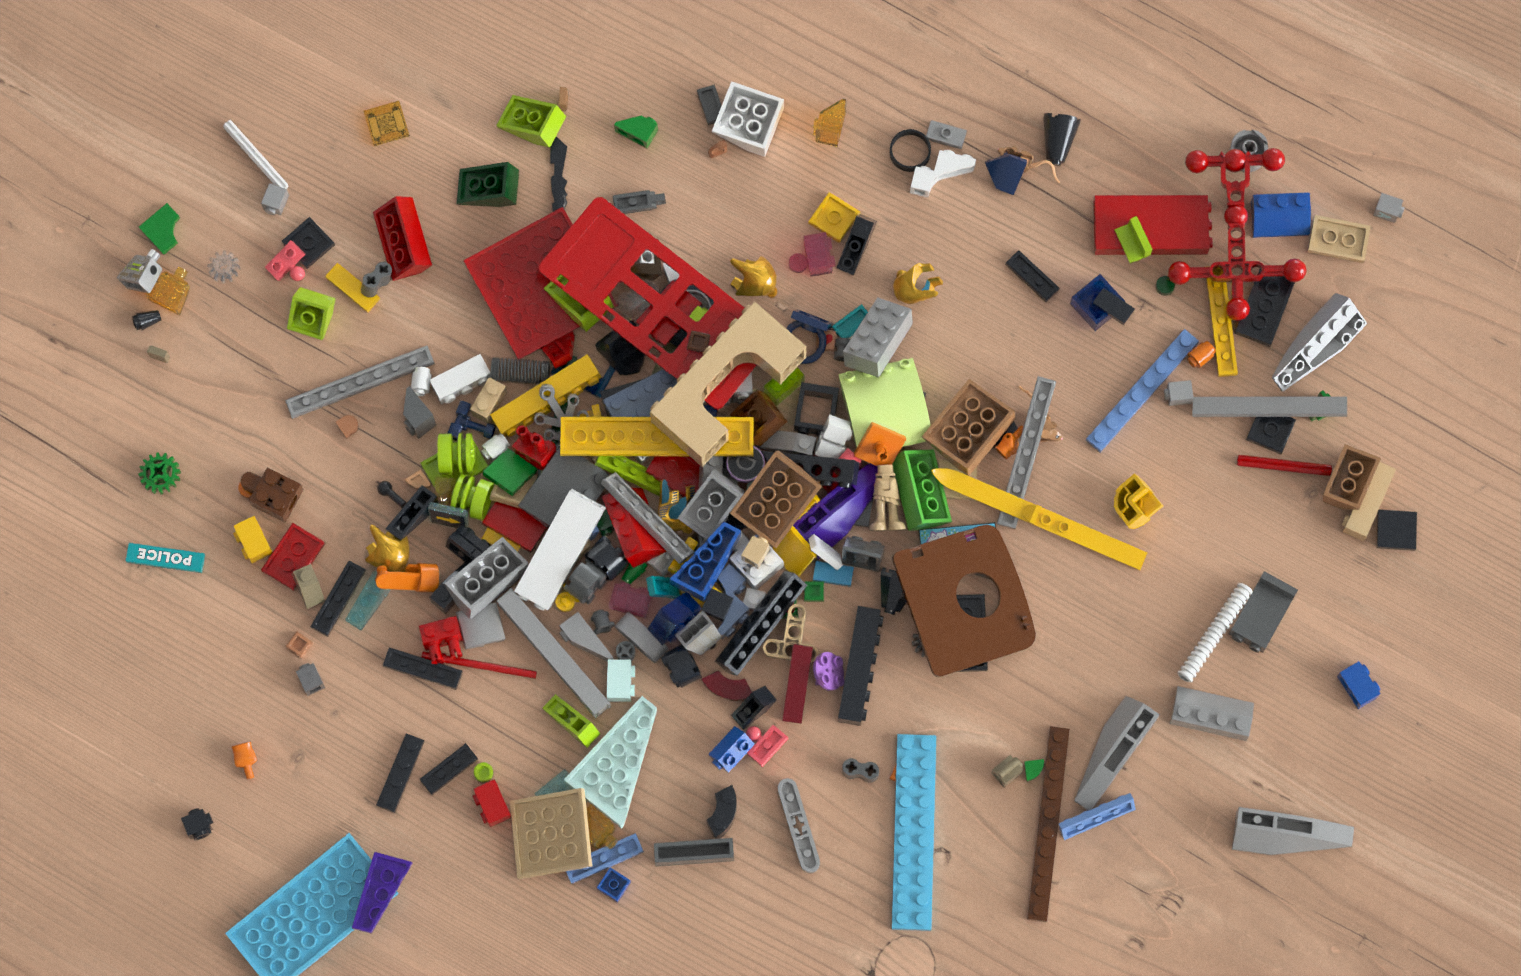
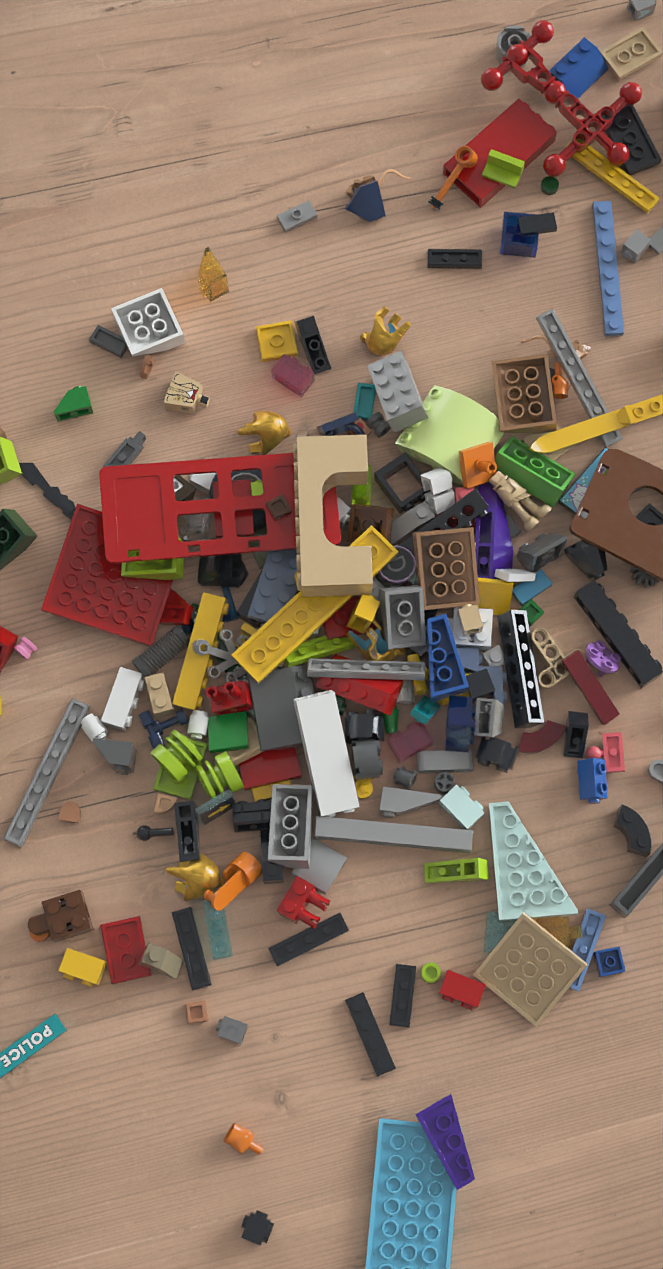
camera: 45 degrees left, 0 degrees up
(429, 278) = (25, 648): none -> bright pink wheel
(444, 488) = (192, 790): clear yellow plate -> none
(484, 666) = (351, 893): red bar -> none
(686, 475) = (363, 613): none -> yellow piece
(724, 196) = (184, 395): none -> tan torso
(798, 263) = (283, 395): clear pink tile -> none
(910, 132) = (283, 265): black tyre -> none
(947, 166) = (319, 235): white arch -> none
(1059, 136) = (377, 147): black cone -> none
(1107, 202) = (470, 162): none -> orange piece
(1201, 354) = (622, 208): orange brick -> none

